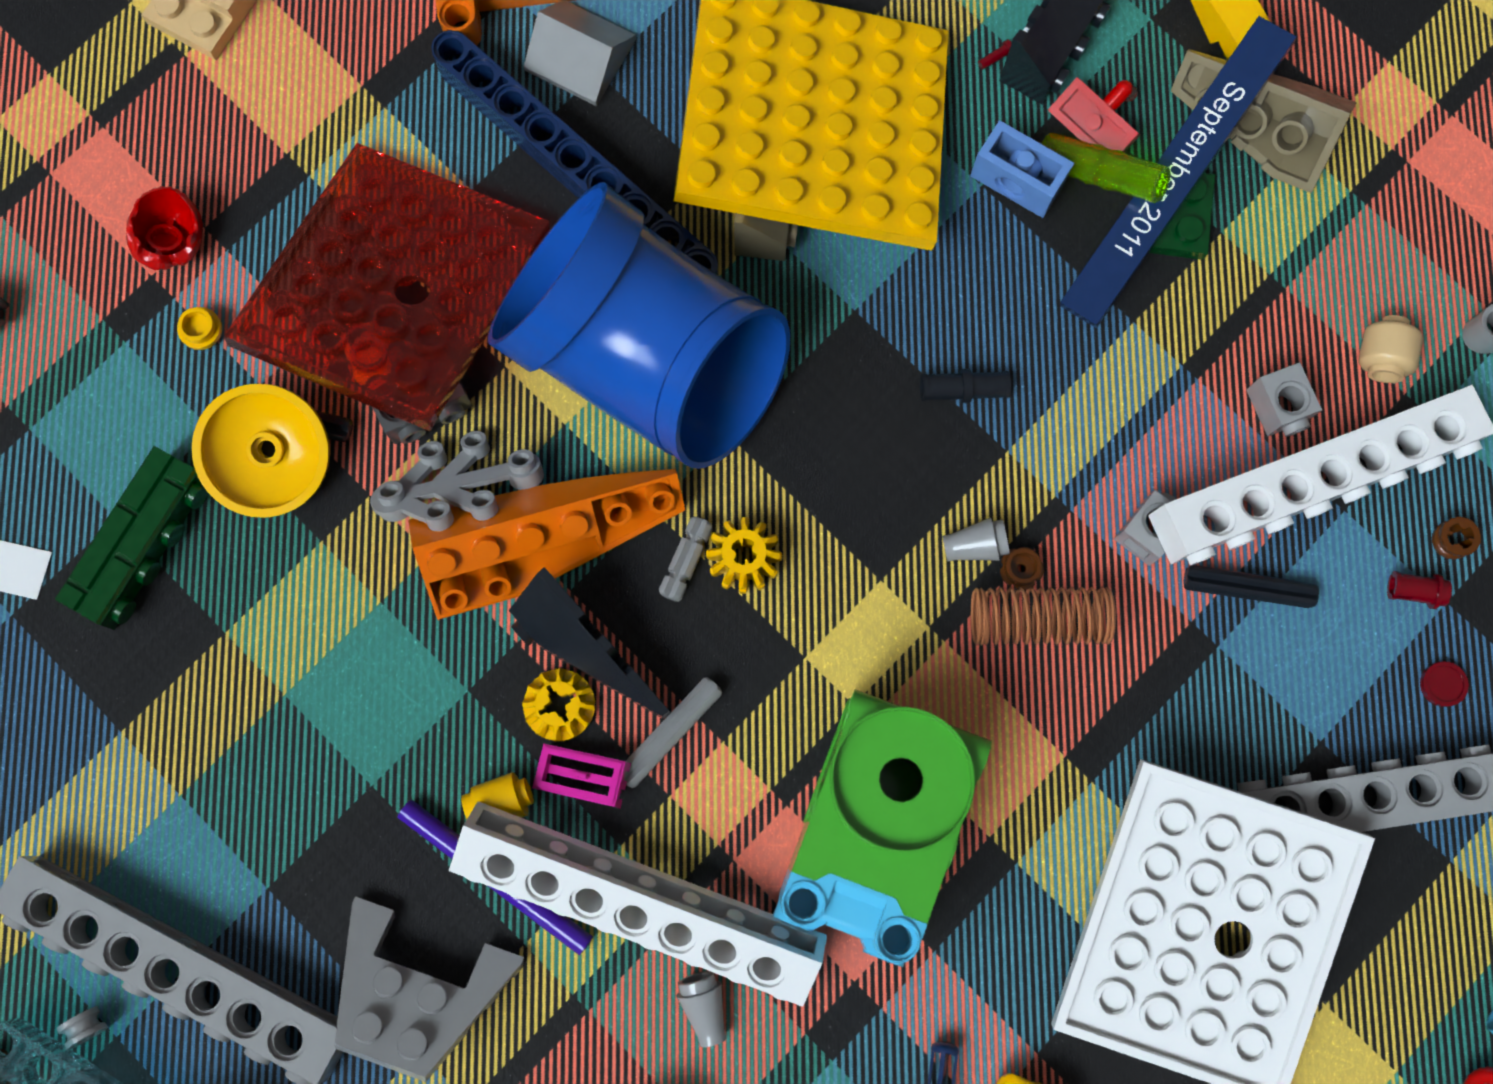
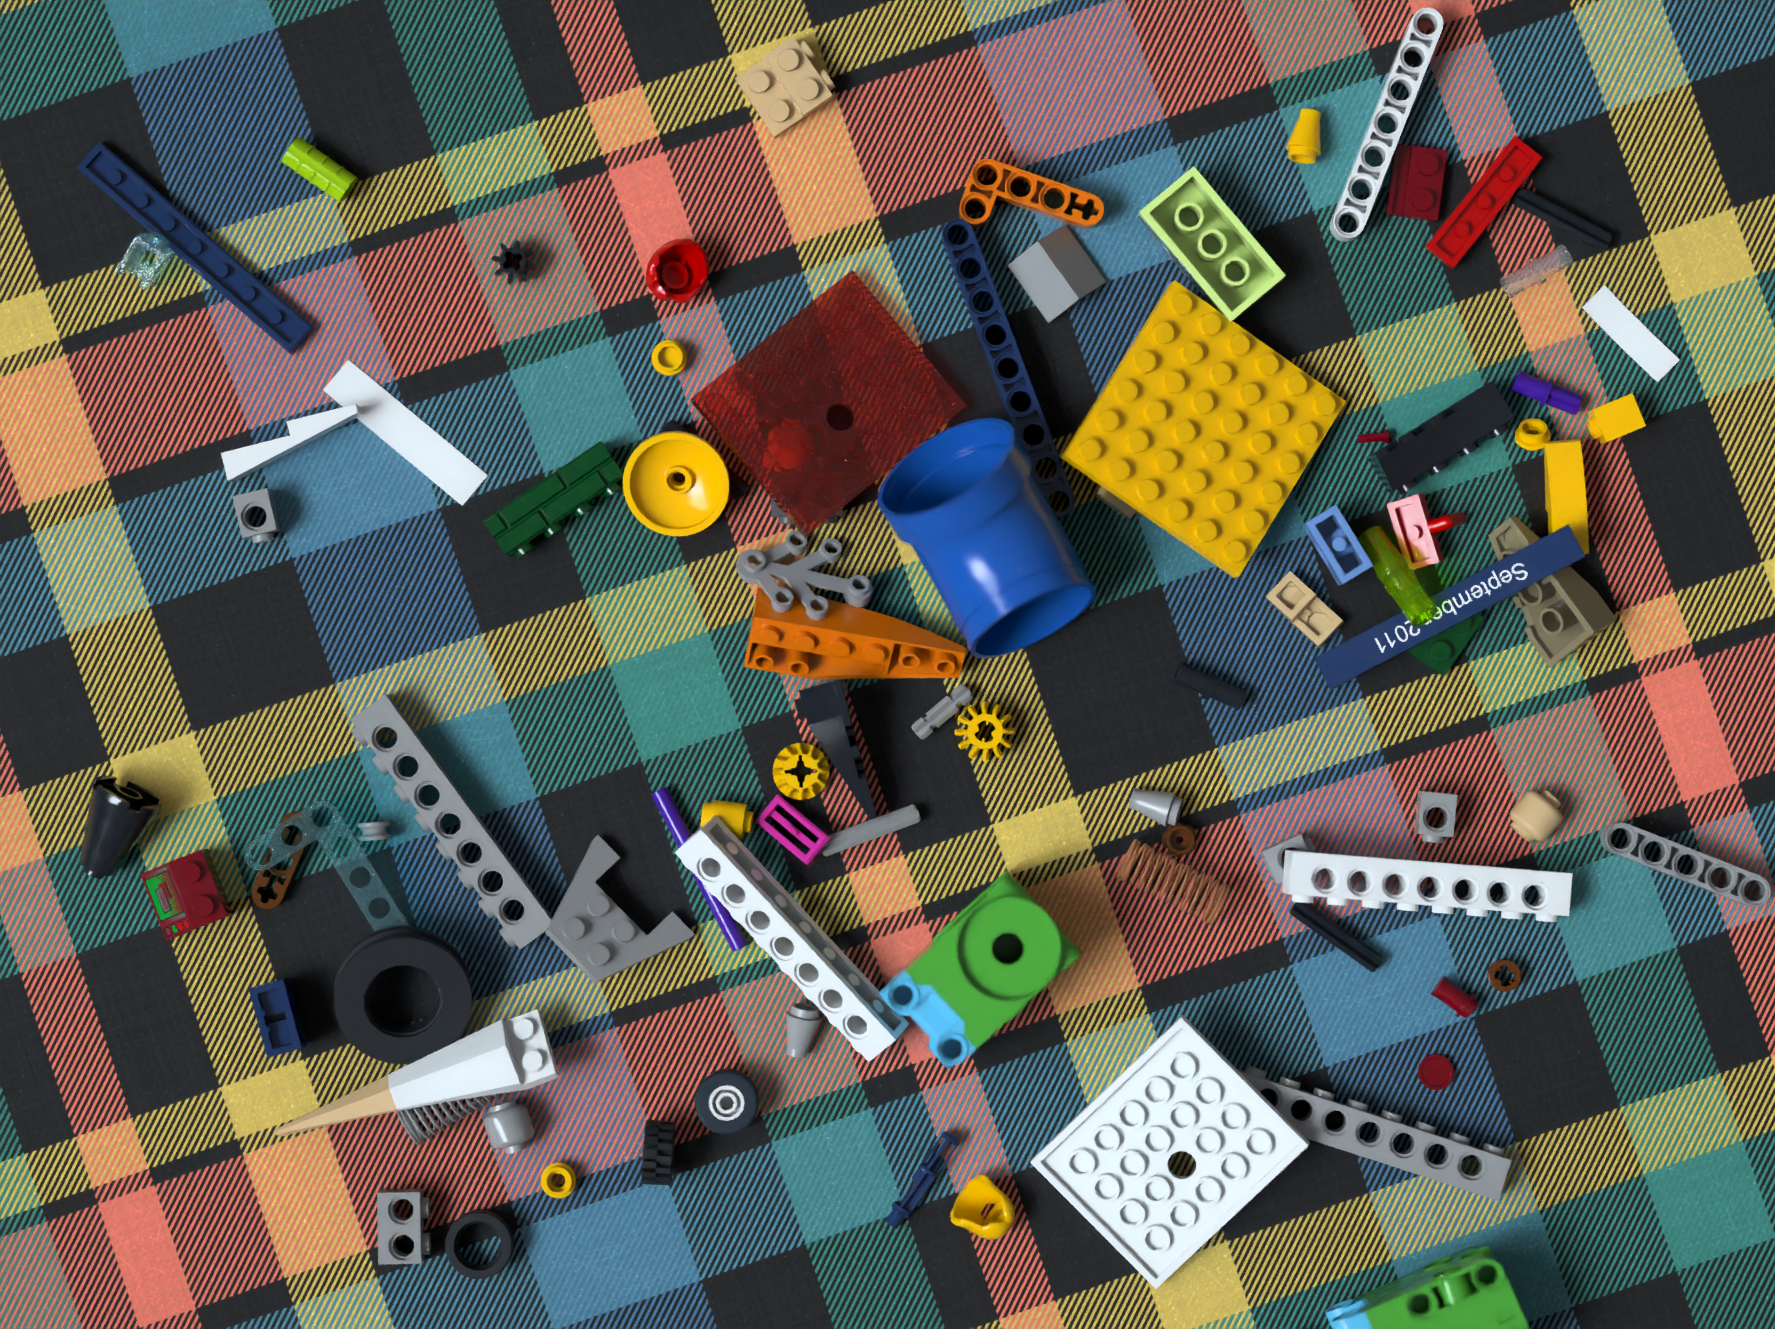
camera: 25 degrees right, 10 degrees up
(1020, 260) = (1304, 609): none -> tan slope

